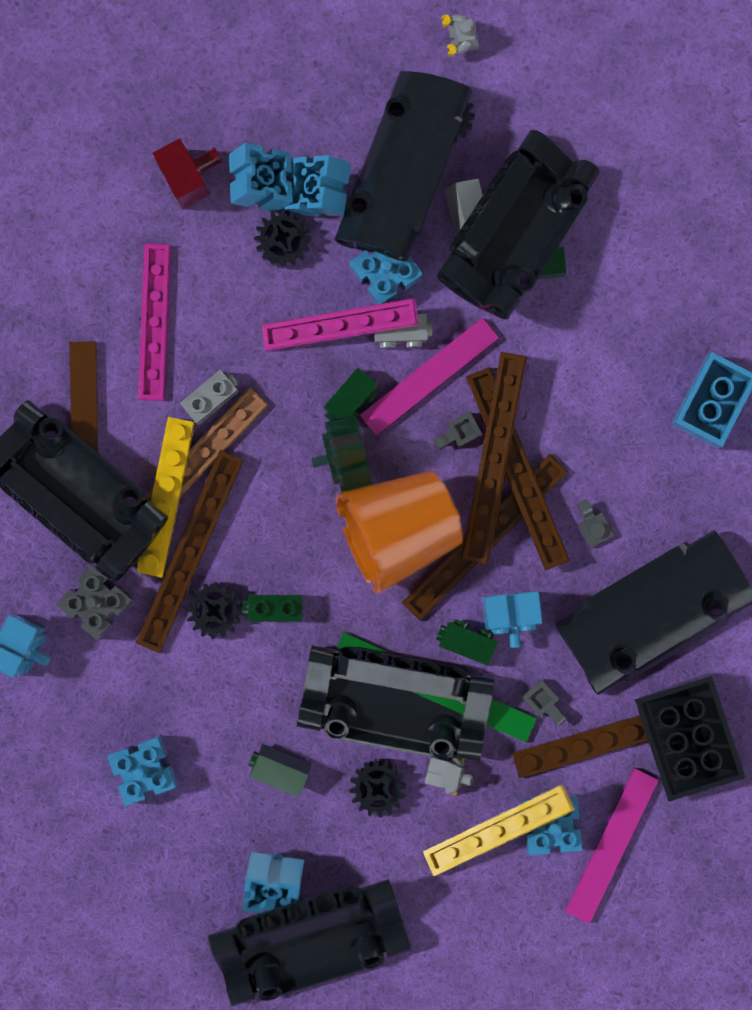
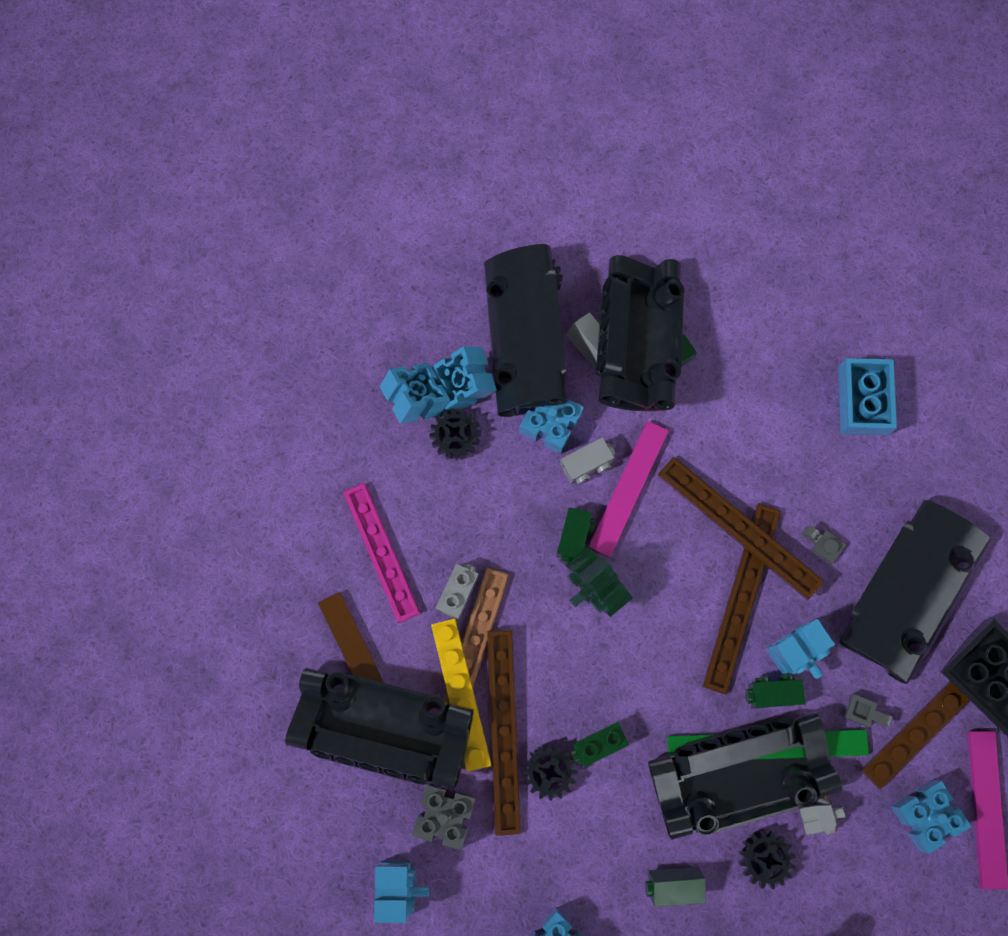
camera: 20 degrees left, 10 degrees down
(185, 172) = (349, 418): dark red brick -> none
(340, 325) = (537, 480): dark pink tile -> none
(399, 527) = (672, 622): orange cone -> none
(460, 430) = (677, 519): dark grey plate -> none
(462, 32) = (517, 211): light grey piece -> none
(494, 458) = (718, 529): reddish brown tile -> none
(498, 830) = (892, 845): yellow plate -> none

